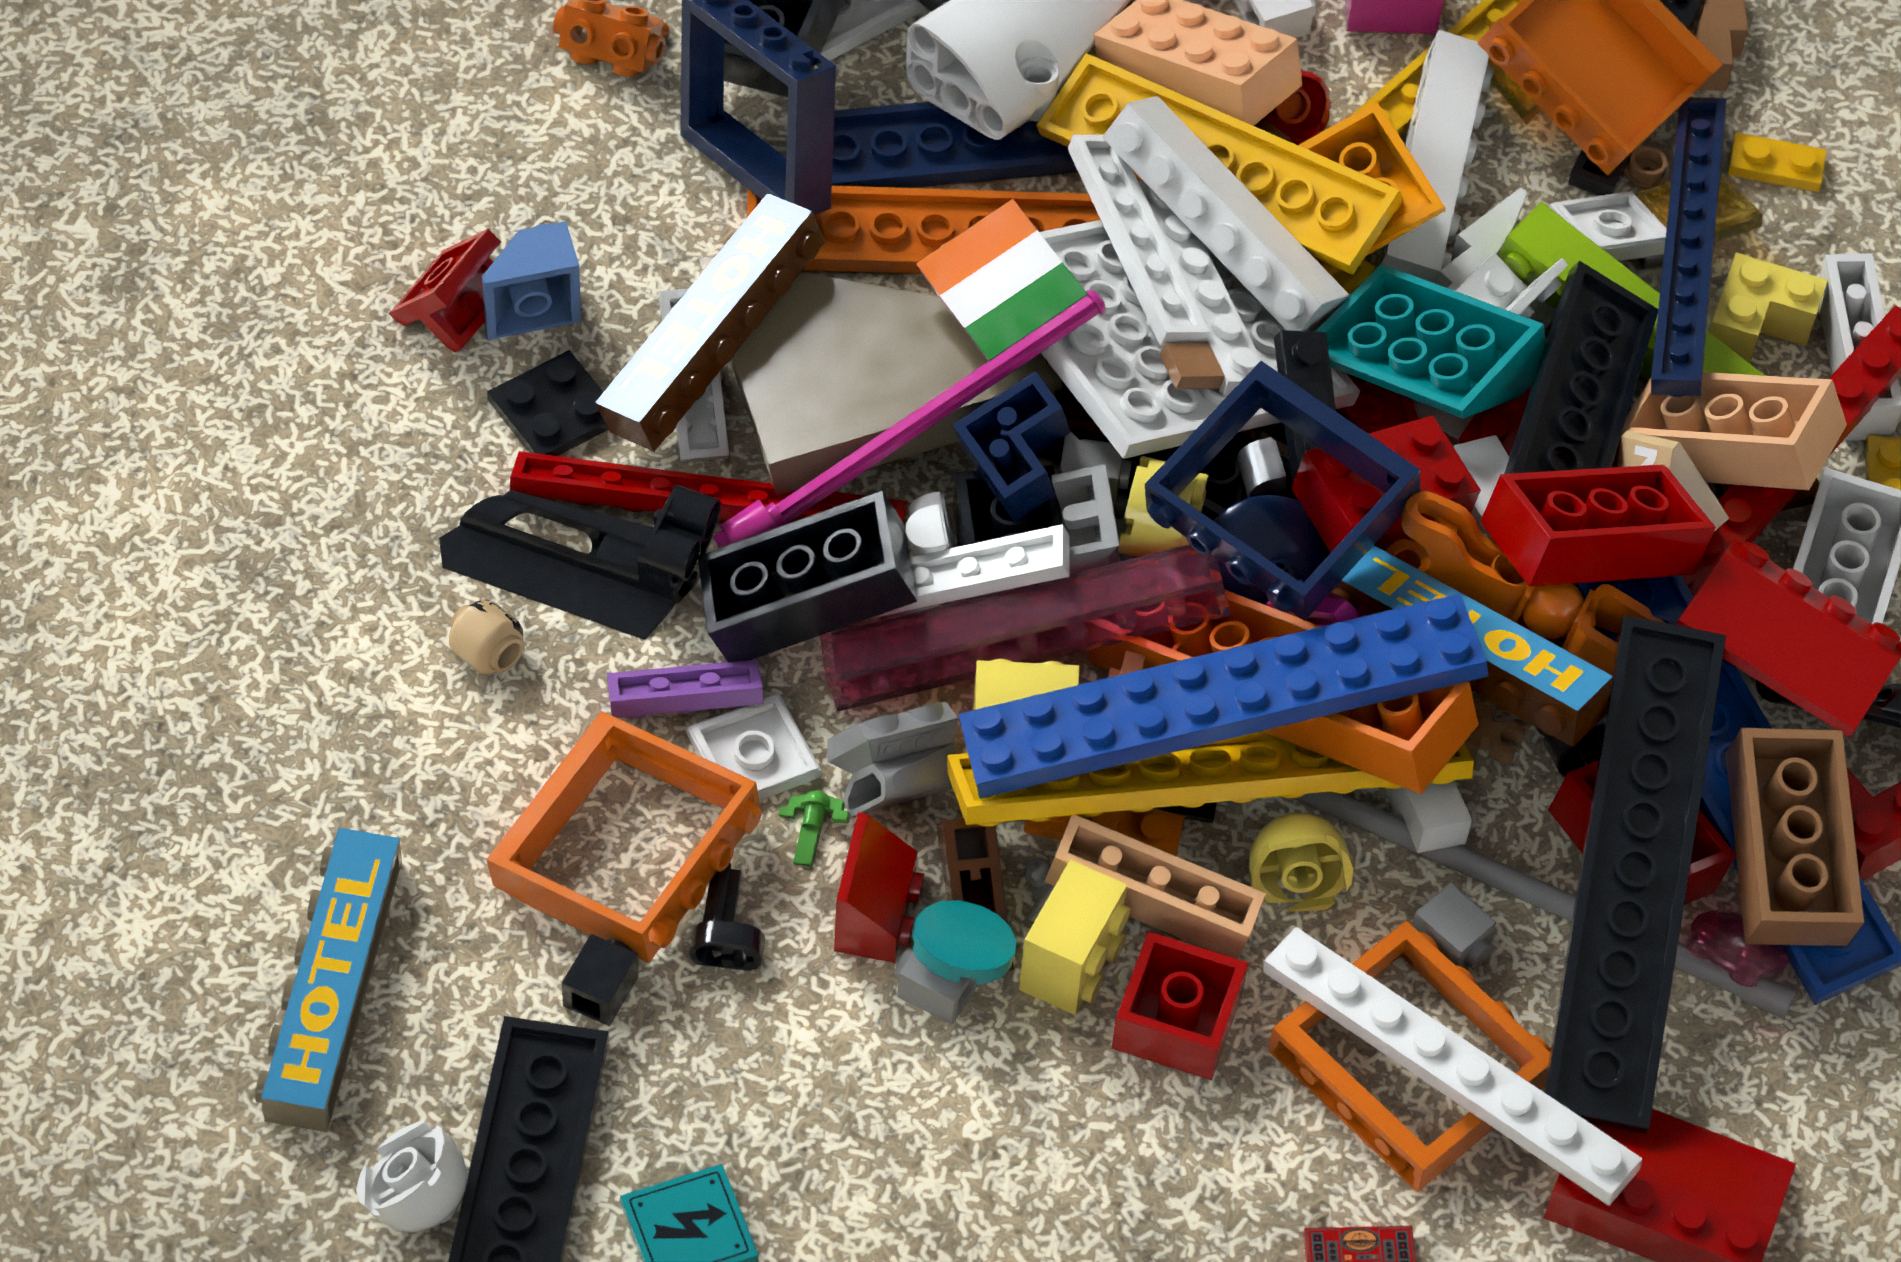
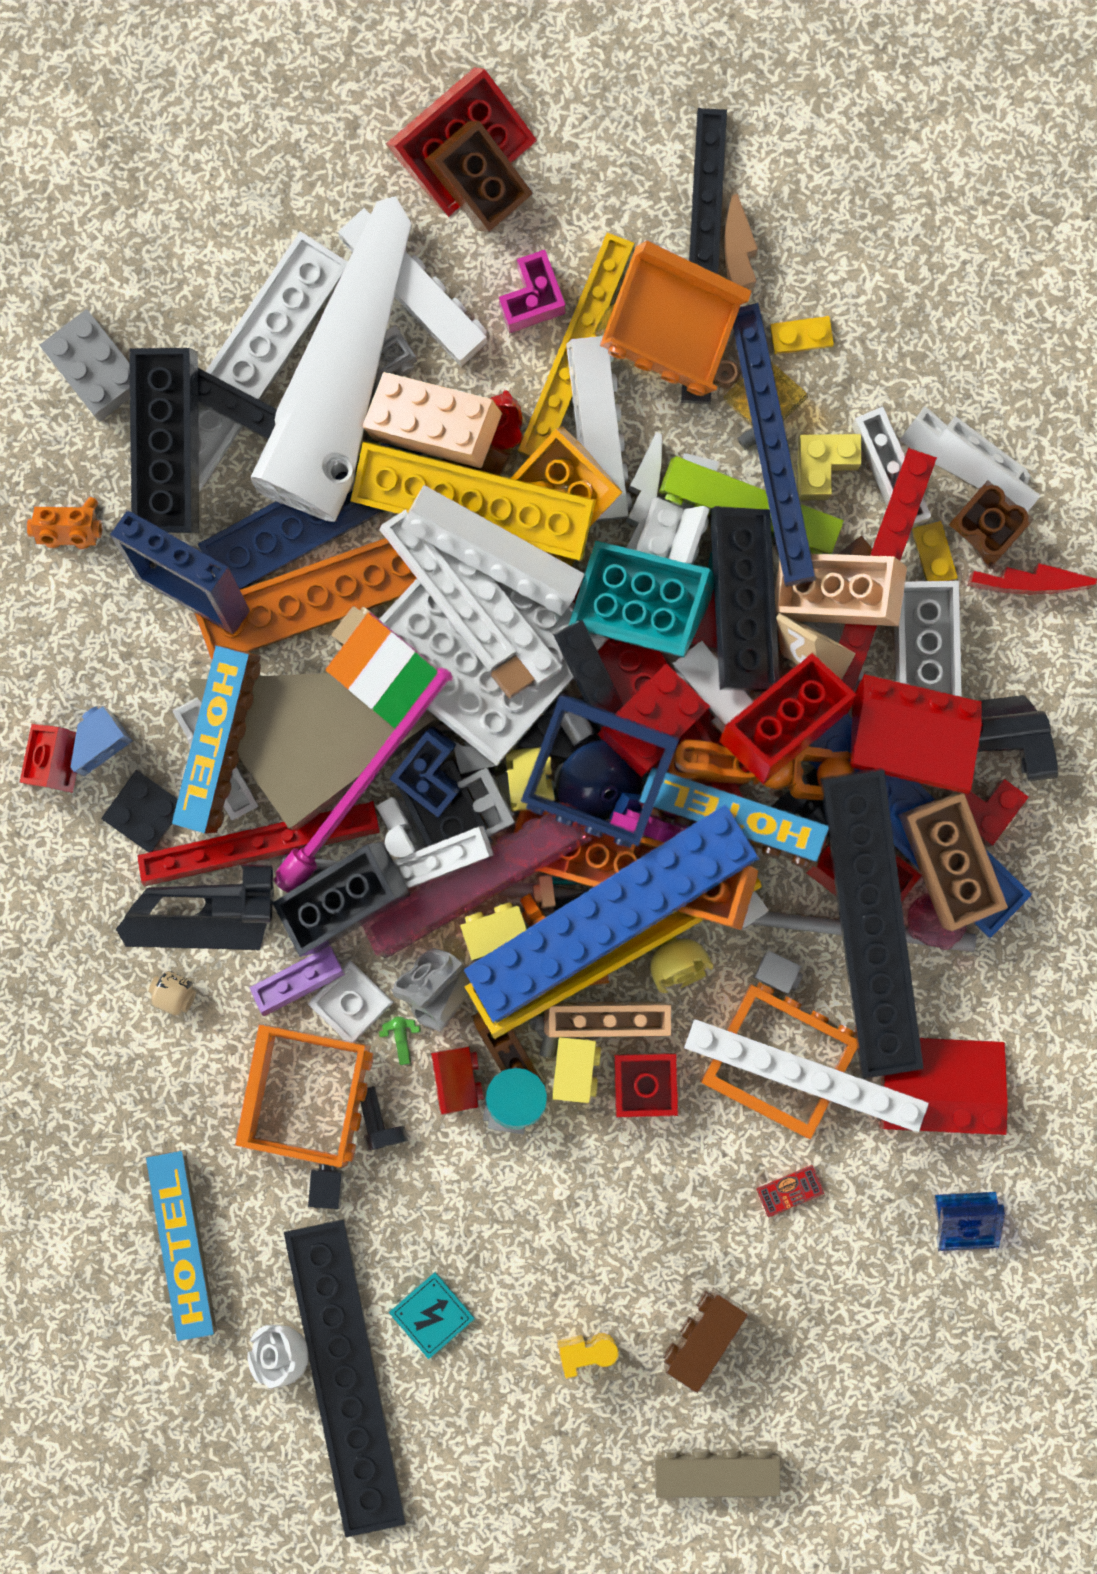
camera: 15 degrees left, 30 degrees up
(1616, 224) = (717, 434): white tile -> none

